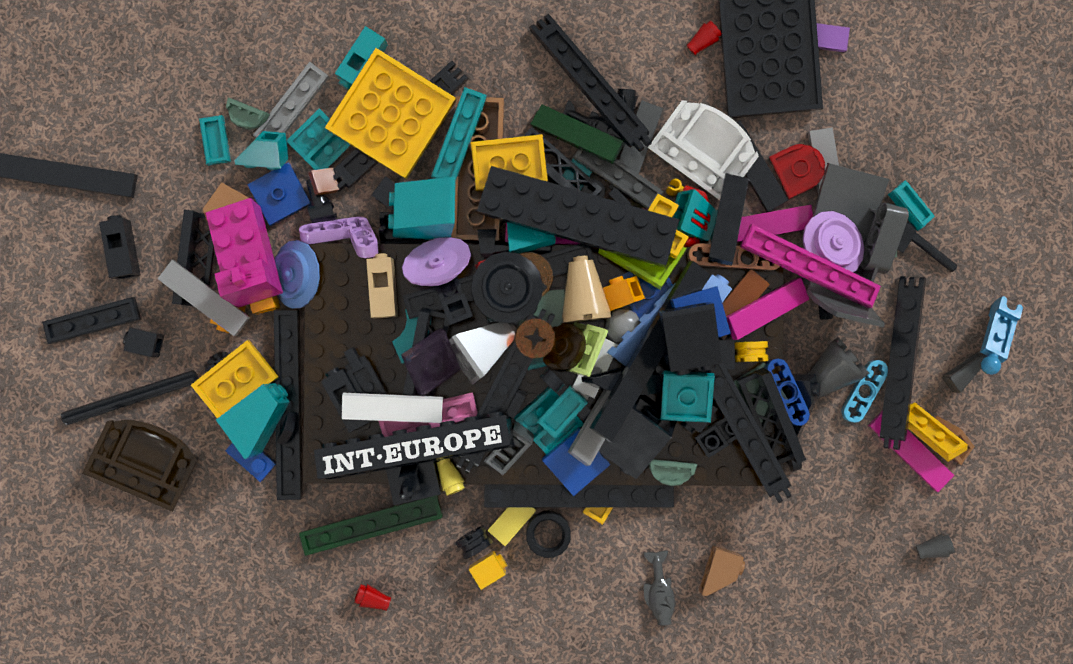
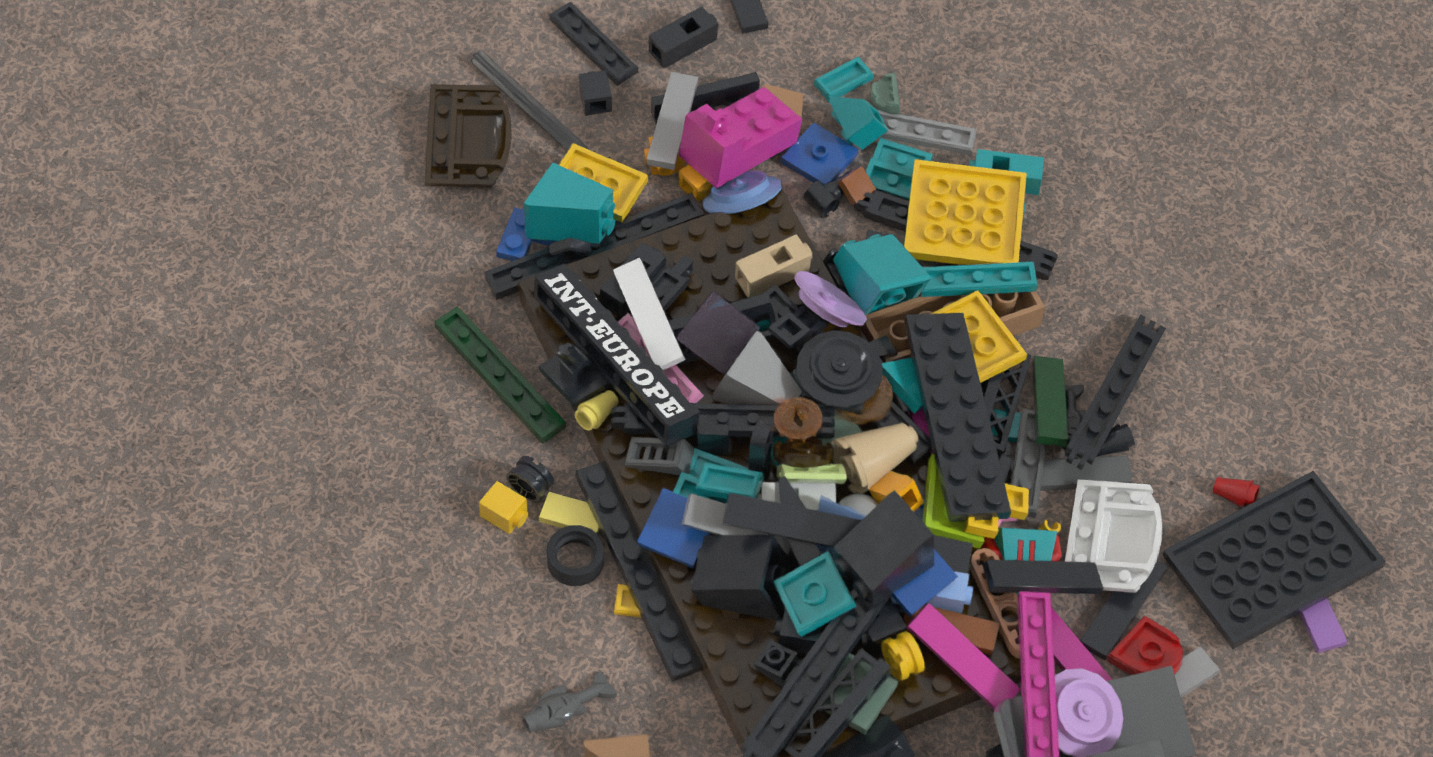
camera: 65 degrees right, 30 degrees down
(355, 228) = (815, 230): lavender beam -> none
(371, 598) = (415, 404): red cone -> none
(672, 472) = (716, 637): sand green tile -> none
(796, 394) = (896, 705): blue beam -> none

